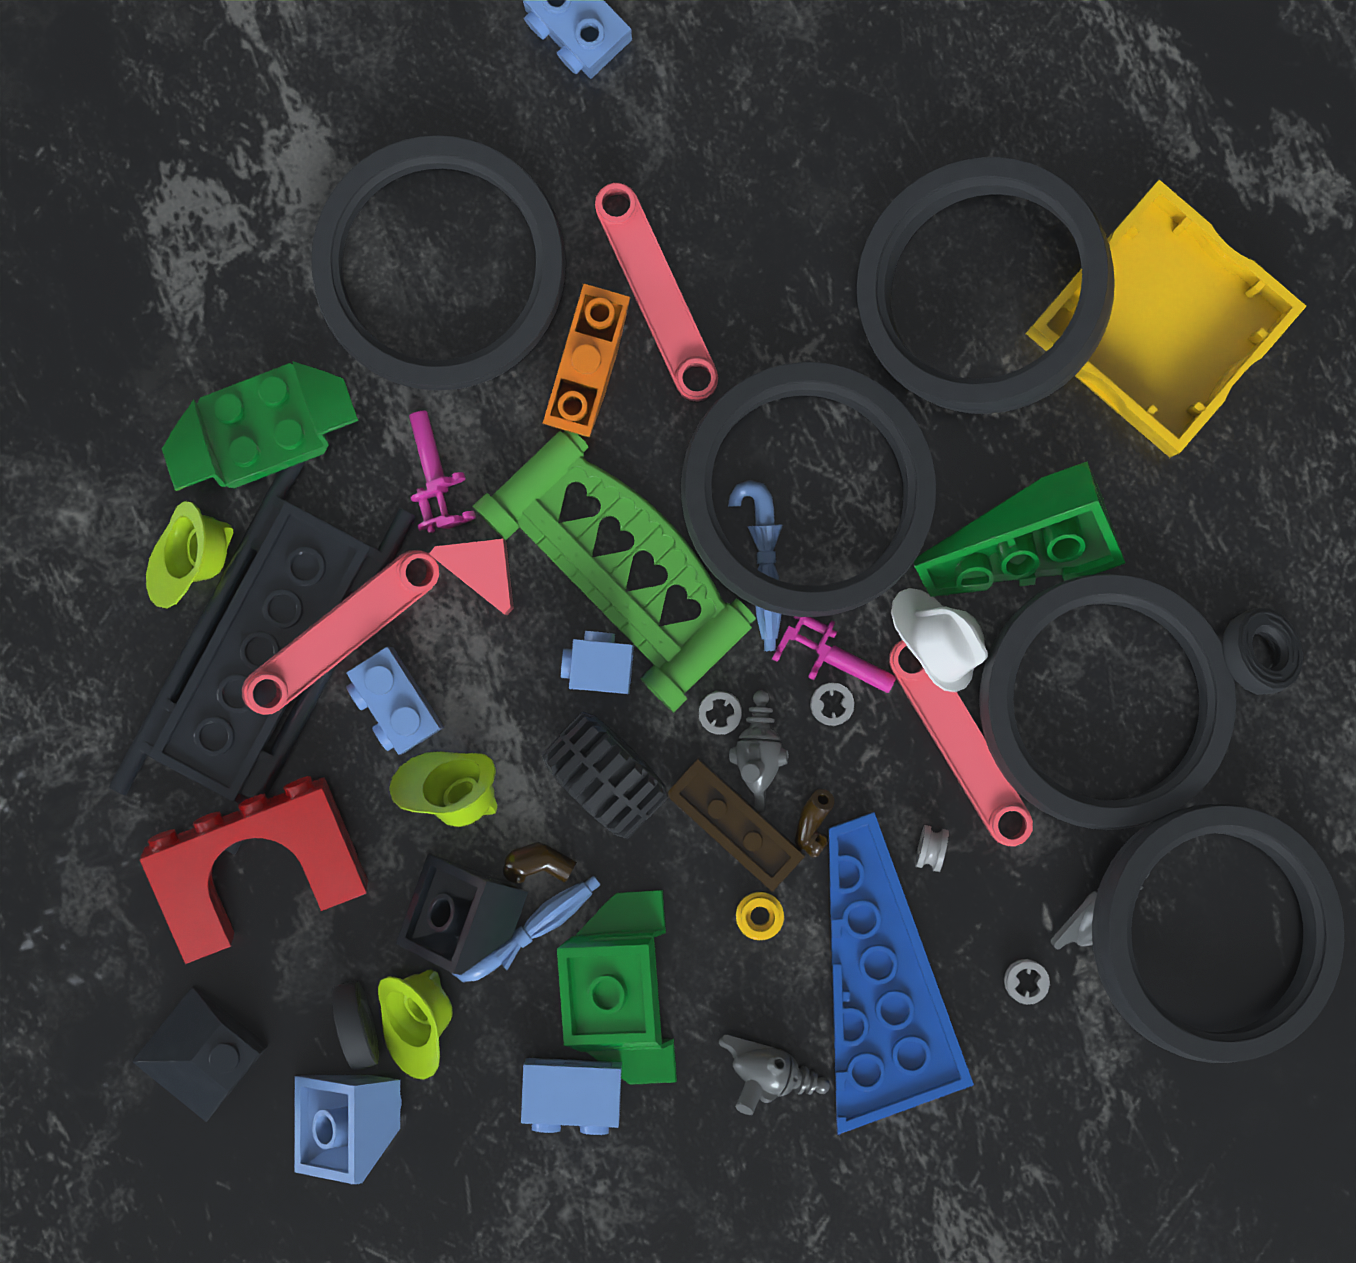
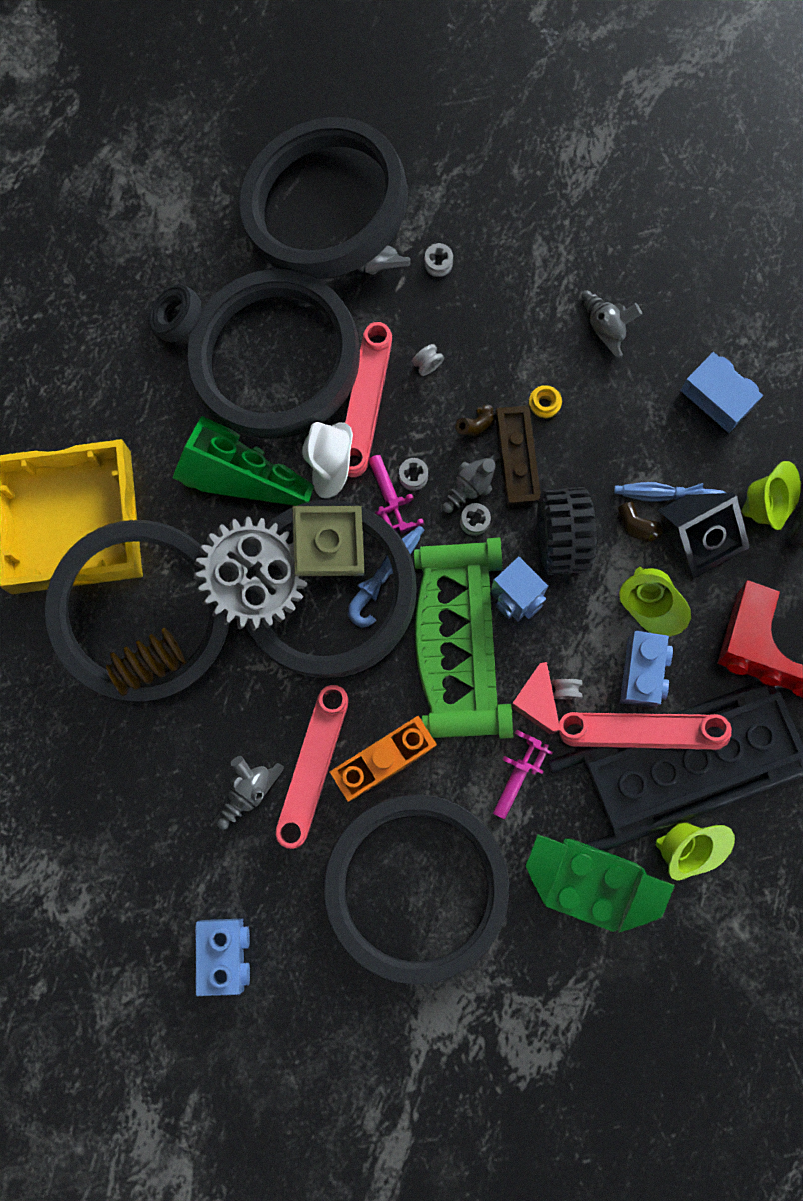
camera: 140 degrees left, 10 degrees down
(460, 608) = (567, 689): none -> light grey bush
(613, 988) = (651, 429): green piece -> none
(702, 208) = (247, 789): none -> dark grey piece
(848, 533) = (327, 541): none -> olive plate
(887, 1009) = (520, 303): blue wing -> none
(893, 381) = (230, 596): none -> light grey gear
(923, 235) = (144, 662): none -> dark brown piece

